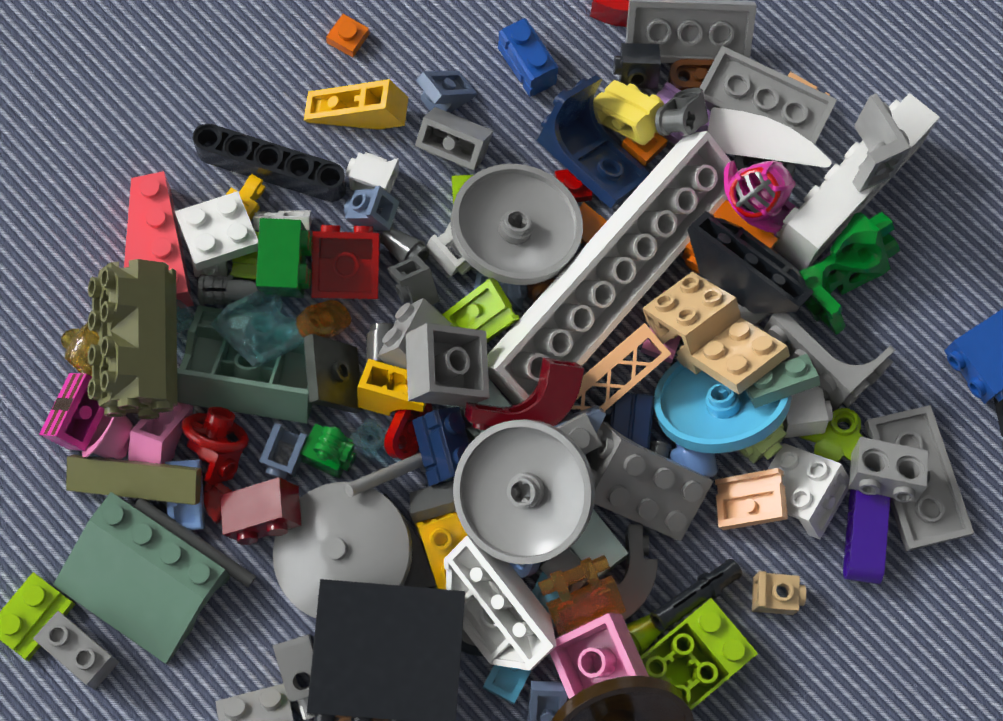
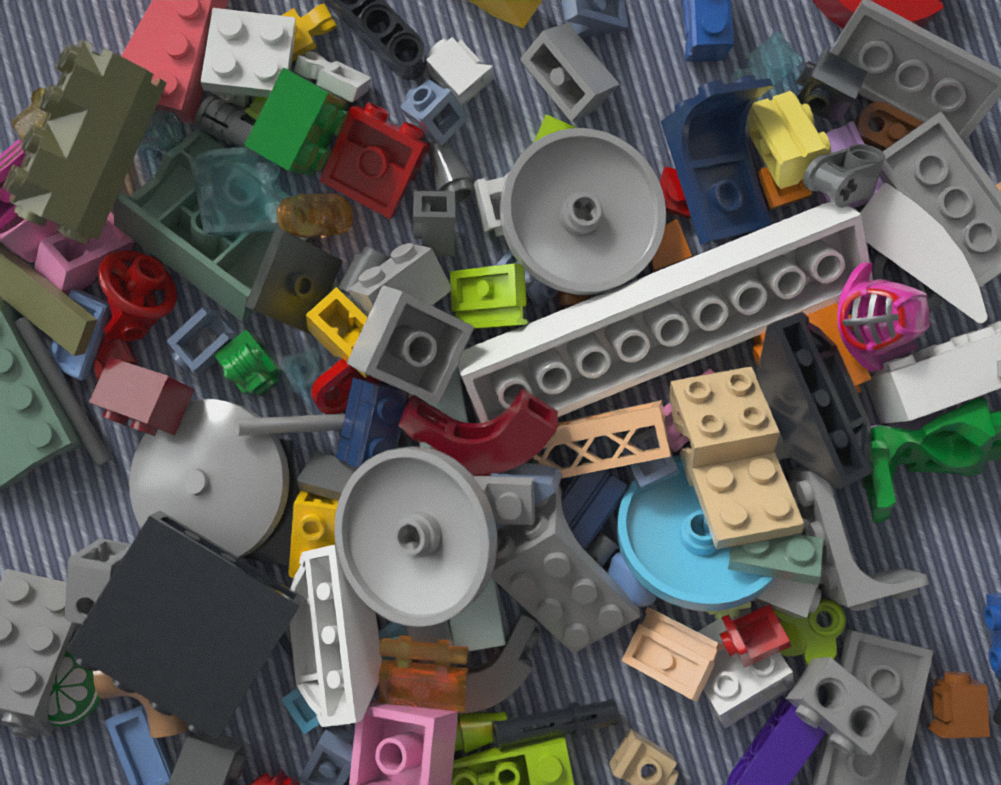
camera: 35 degrees right, 15 degrees up
(588, 65) = (770, 60): none -> clear light blue plate
(663, 375) = (653, 471): none -> sand blue bracket
(800, 452) = (754, 636): none -> red bracket
(971, 434) = (959, 707): none -> dark orange window

